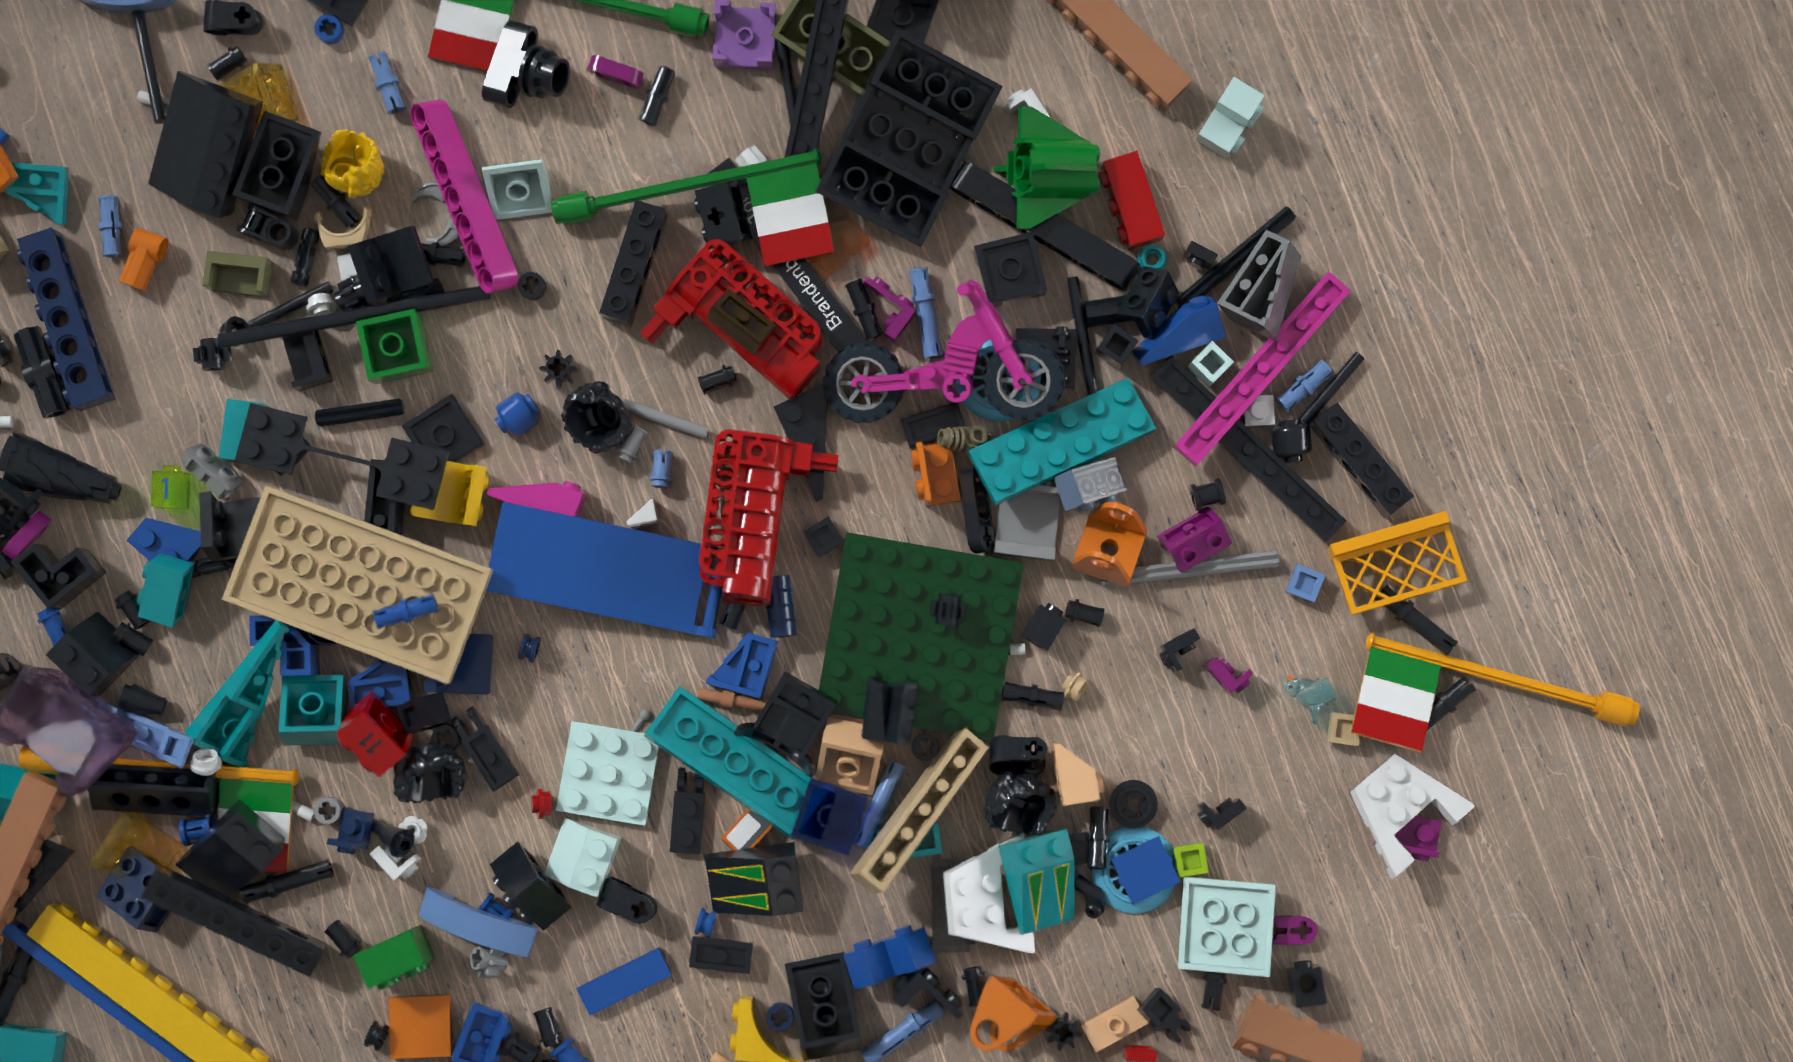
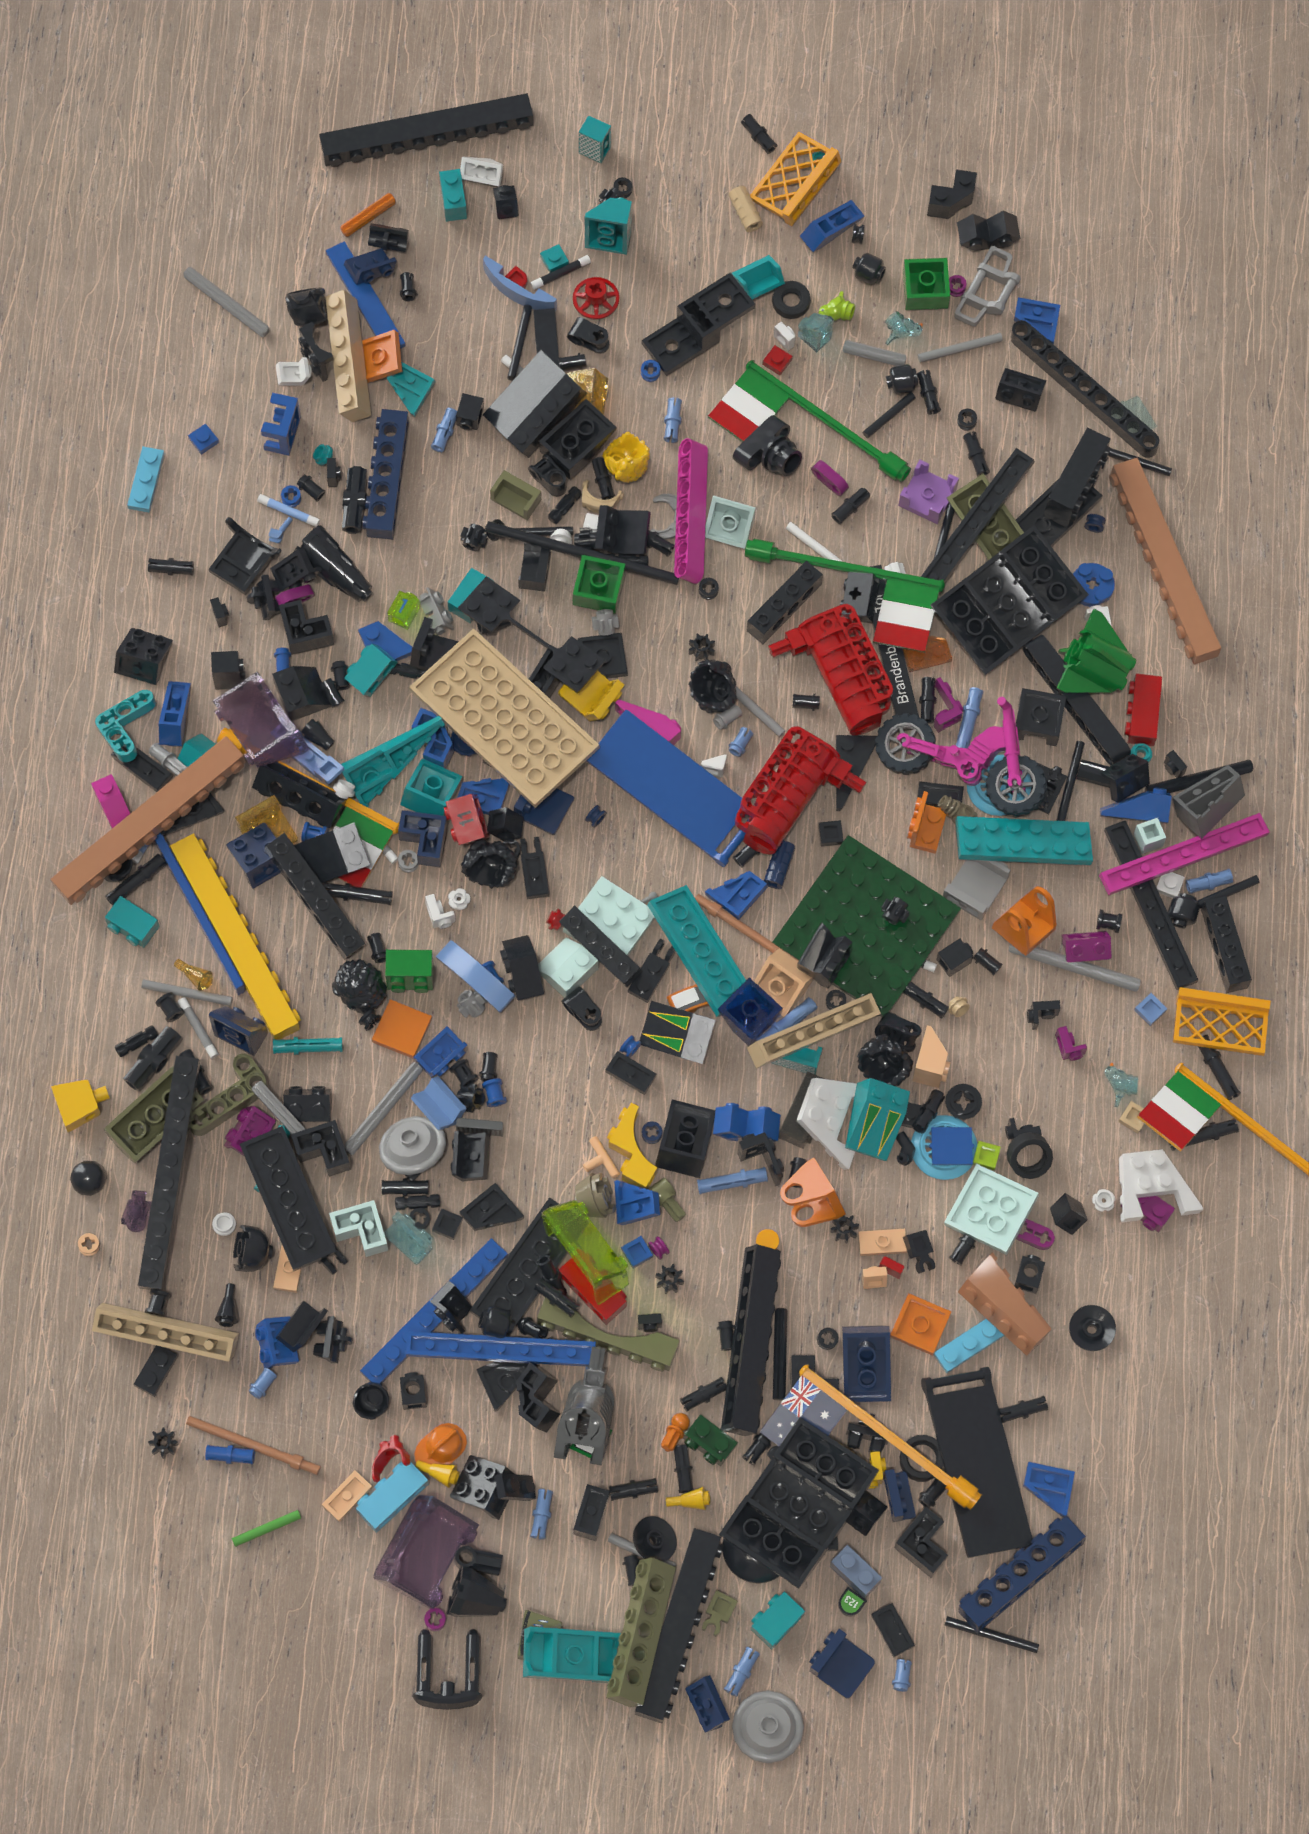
camera: 20 degrees right, 15 degrees down
(130, 189) = (469, 412): none -> black brick
(145, 251) = (460, 454): orange piece -> none
(179, 41) = (546, 333): none -> black tile
(336, 767) = (428, 831): none -> dark blue brick
(342, 1003) = (359, 986): none -> black hair
(353, 831) = (419, 881): dark blue bracket -> none
(359, 412) = (553, 617): black axle -> none
(396, 840) = (448, 896): black cone -> none
(405, 611) = (529, 744): blue pin -> none
(425, 391) = (605, 622): none -> light grey gear
(517, 414) = (659, 664): blue head -> none
(612, 820) = (600, 946): none -> black brick
(624, 981) = (555, 1061): blue tile -> none
(633, 167) = (821, 550): none -> white bar
(740, 321) = (841, 662): dark brown slope -> none
(791, 720) = (752, 938): black piece -> none
(976, 512) = (944, 862): black beam -> none
(1006, 49) = (1102, 576): none -> blue plate
(1090, 484) = (1027, 873): brick -> none
(1116, 346) = (1089, 796): black brick -> none
(1234, 111) = (1238, 684): light aqua brick -> none
(1253, 853) = (1037, 1169): none -> black tyre
(1319, 887) = (1068, 1213): none -> black panel
(1360, 849) = (1103, 1194): none -> white plate
(1419, 1028) = (1094, 1317): none -> black dish

